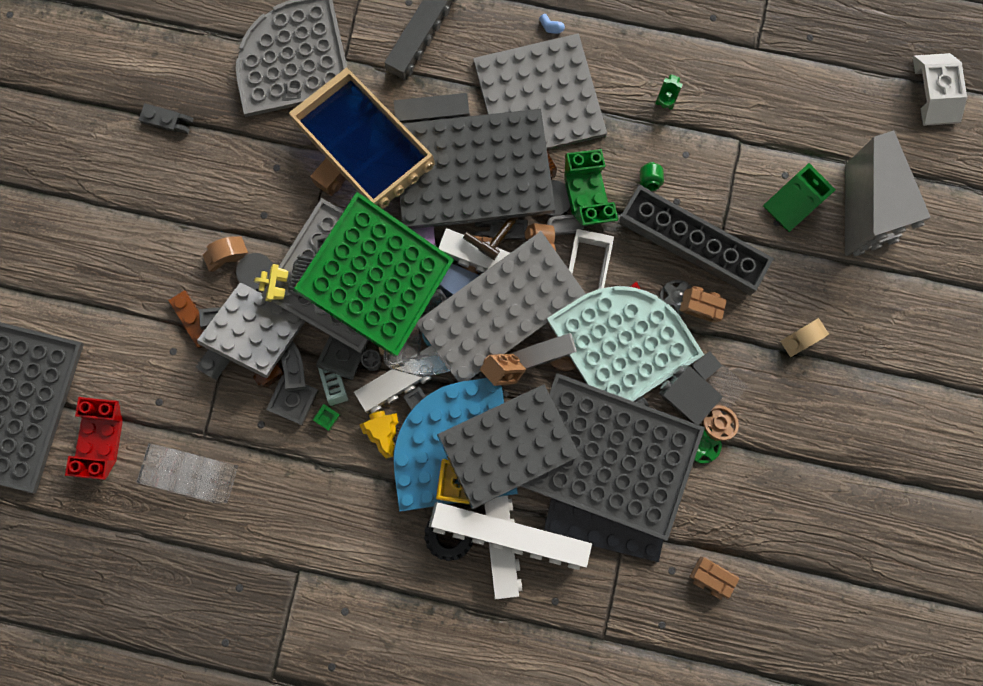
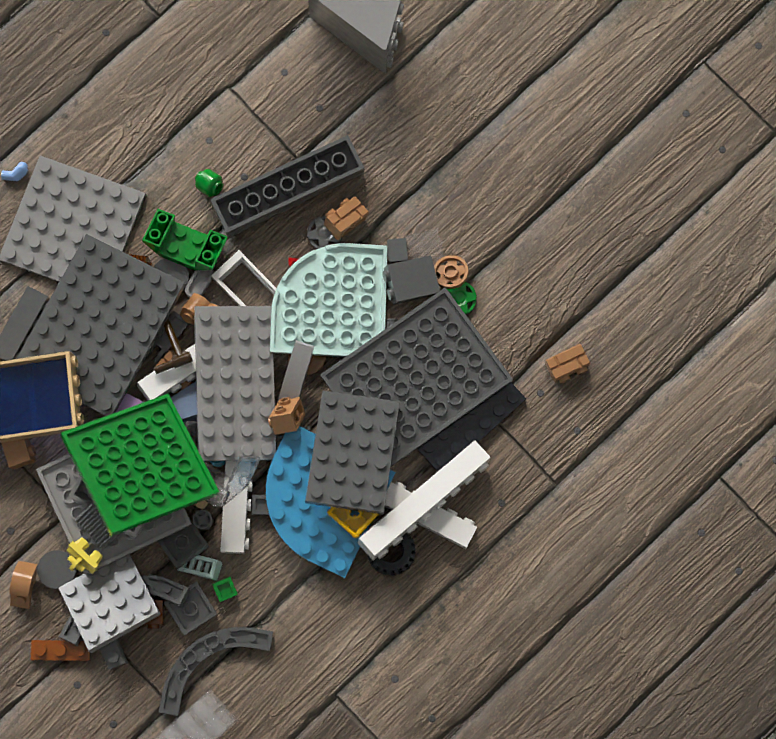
camera: 55 degrees left, 0 degrees up
(262, 431) = (202, 649): none -> dark grey plate
(381, 430) = (267, 551): yellow rock -> none
(669, 92) = (148, 118): green hips -> none
(799, 197) = (311, 77): green slope -> none
(804, 337) = (428, 155): tan brick -> none

